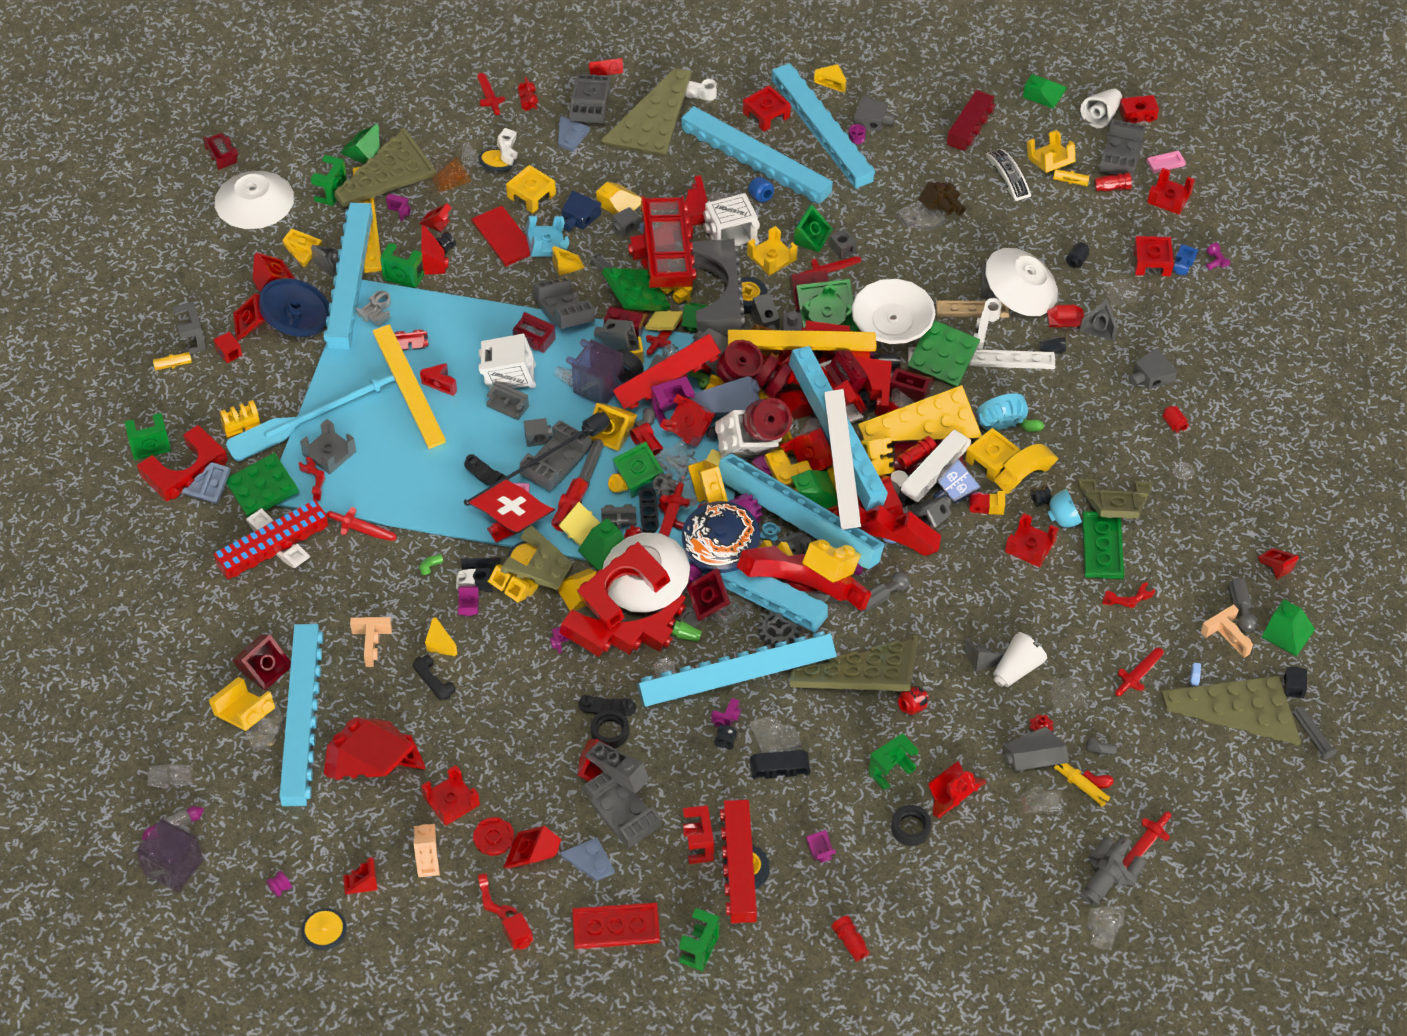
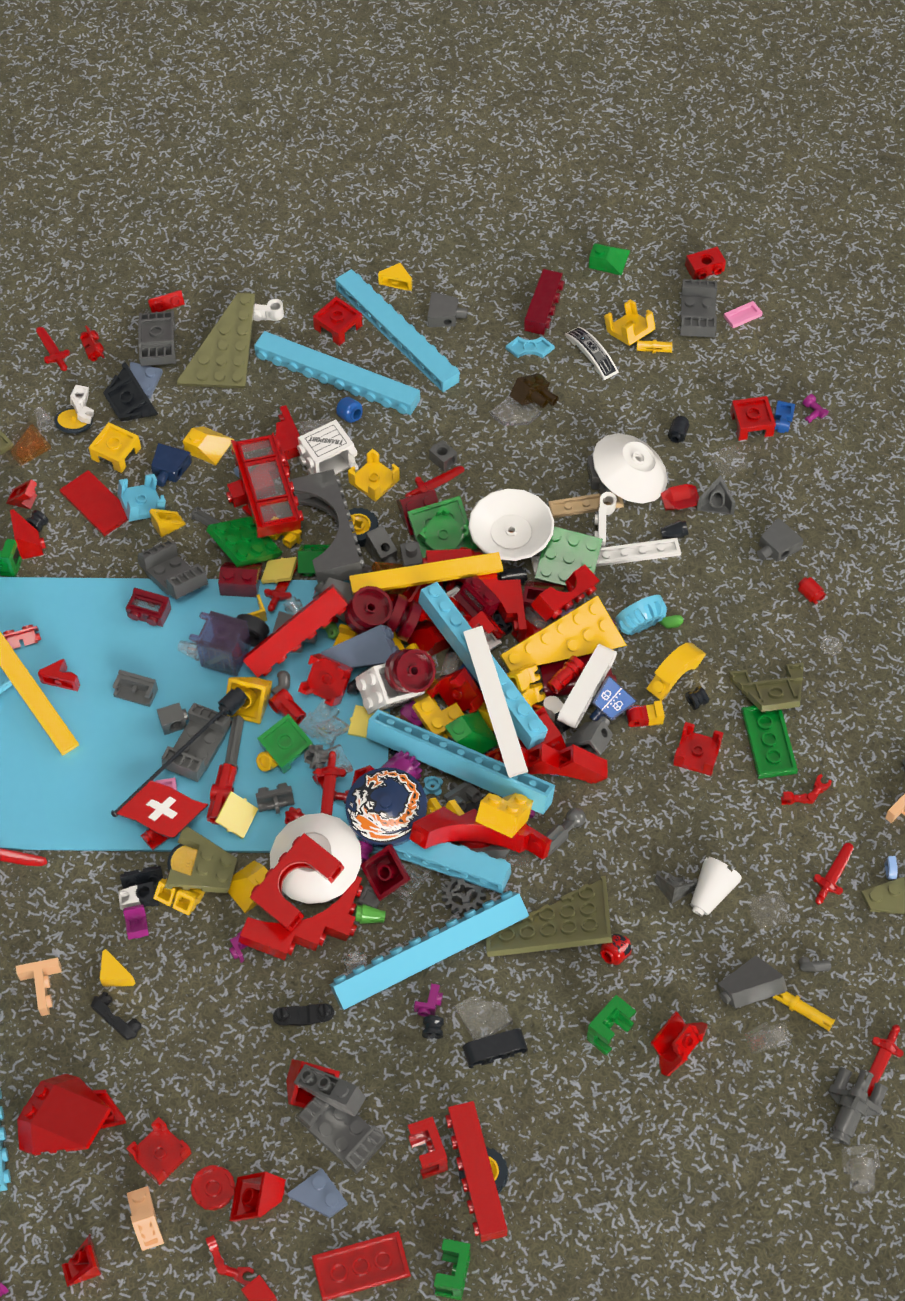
camera: 10 degrees left, 5 degrees up
(430, 561) = (85, 884): bright green arm -> none
(482, 470) = (125, 772): black piece -> none
(507, 361) = (127, 647): white container -> none
(552, 146) = (128, 397): none -> black wing
(600, 543) = (262, 833): green slope -> none
(610, 715) = (311, 1025): black tyre -> none
(618, 334) = (235, 597): dark grey torso -> none
(625, 222) = (218, 467): dark grey brick -> none
(648, 510) = (305, 782): black beam -> none
(664, 394) = (298, 656): magenta panel -> none
(707, 482) = (360, 747): yellow panel -> none
(812, 230) = (409, 446): green slope -> none
(820, 846) = (555, 1134): magenta bracket -> none
(851, 938) = (607, 1233): red axle -> none
(857, 134) = (433, 334): magenta wheel -> none
(911, 839) = (645, 1075): black tyre -> none
(917, 385) = (552, 602): none -> red arch
(942, 159) = (538, 347): none -> medium azure tile
(992, 452) = (640, 660): yellow panel -> none
(1041, 721) = (749, 950): red plant -> none
(1063, 510) = (723, 710): medium azure cylinder -> none
(1101, 107) = (669, 268): white cone -> none
(1101, 781) = (821, 1004): red arm -> none
(1111, 182) = (696, 345): red axle -> none
(1169, 194) = (754, 349): red panel -> none

